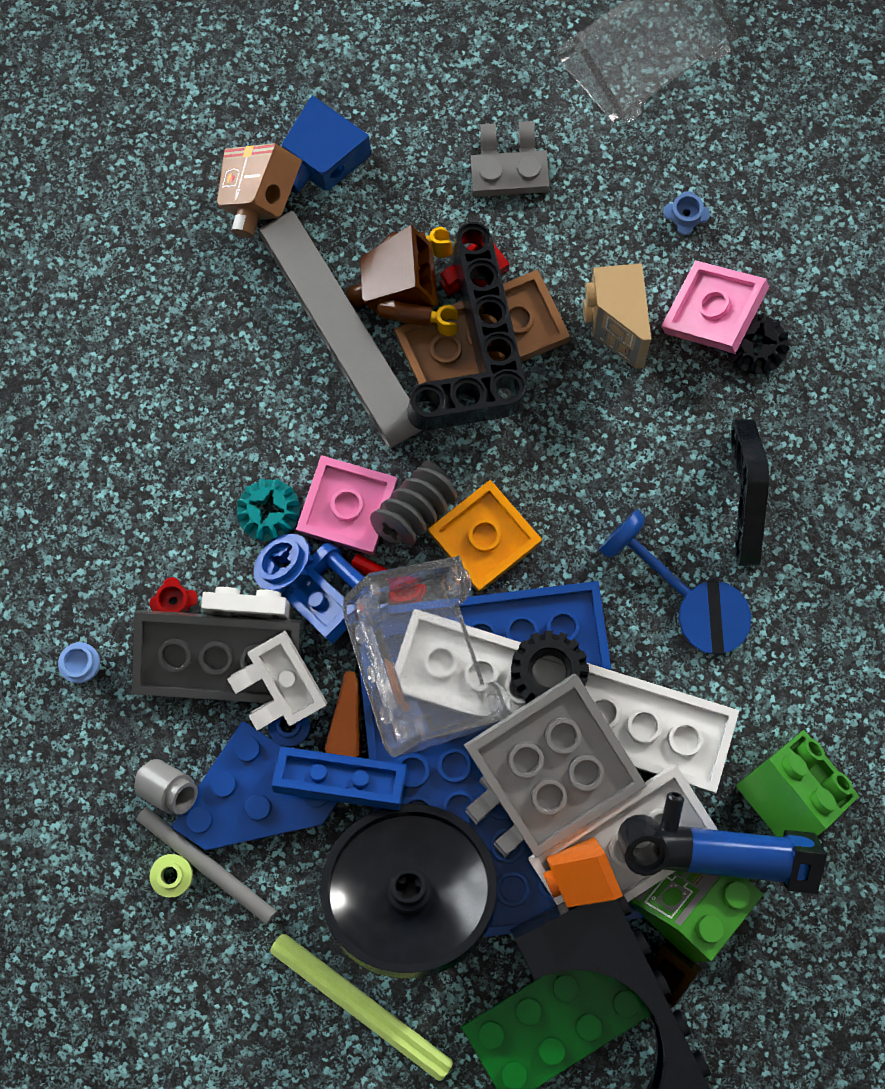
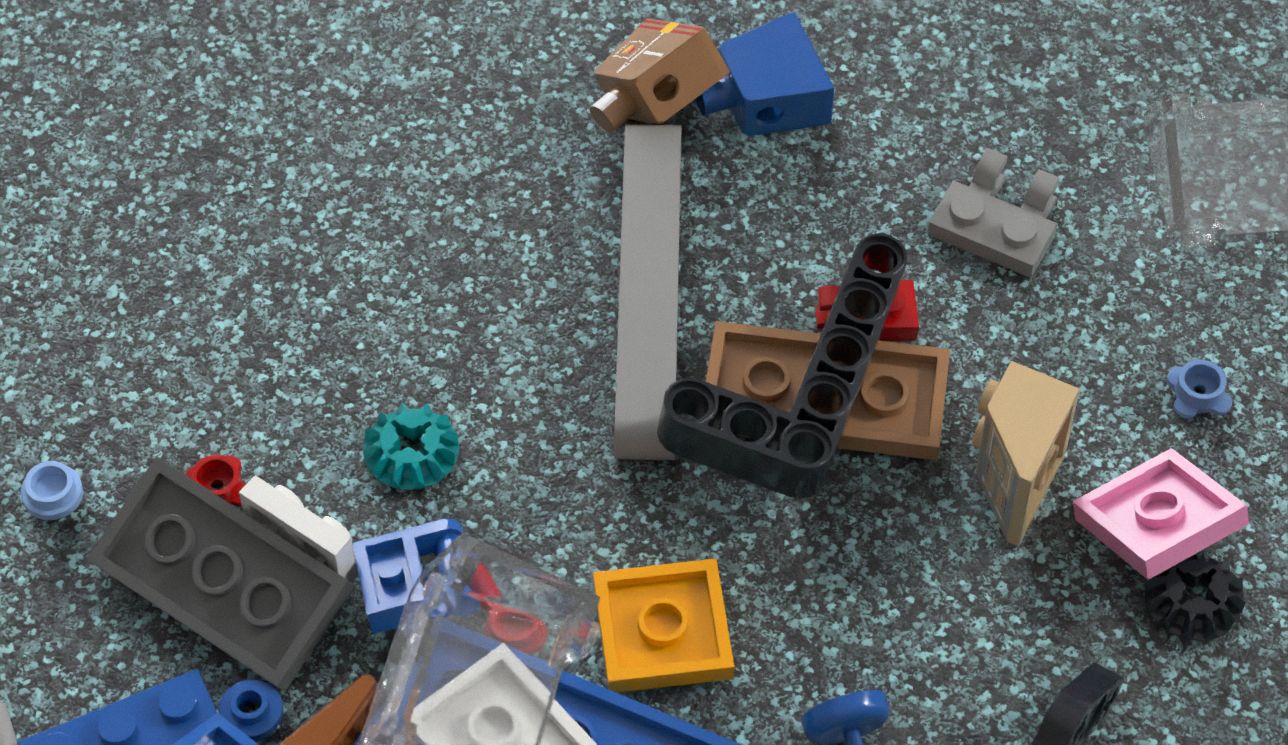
camera: 25 degrees right, 20 degrees down
(165, 787) = (44, 686): light grey brick -> none
(284, 549) = (383, 511): blue gear -> none
(286, 679) = (283, 636): white plate -> none
(342, 504) = (512, 490): bright pink plate -> none
(401, 279) = (762, 266): reddish brown torso -> none
(414, 505) = (593, 529): dark grey piece -> none

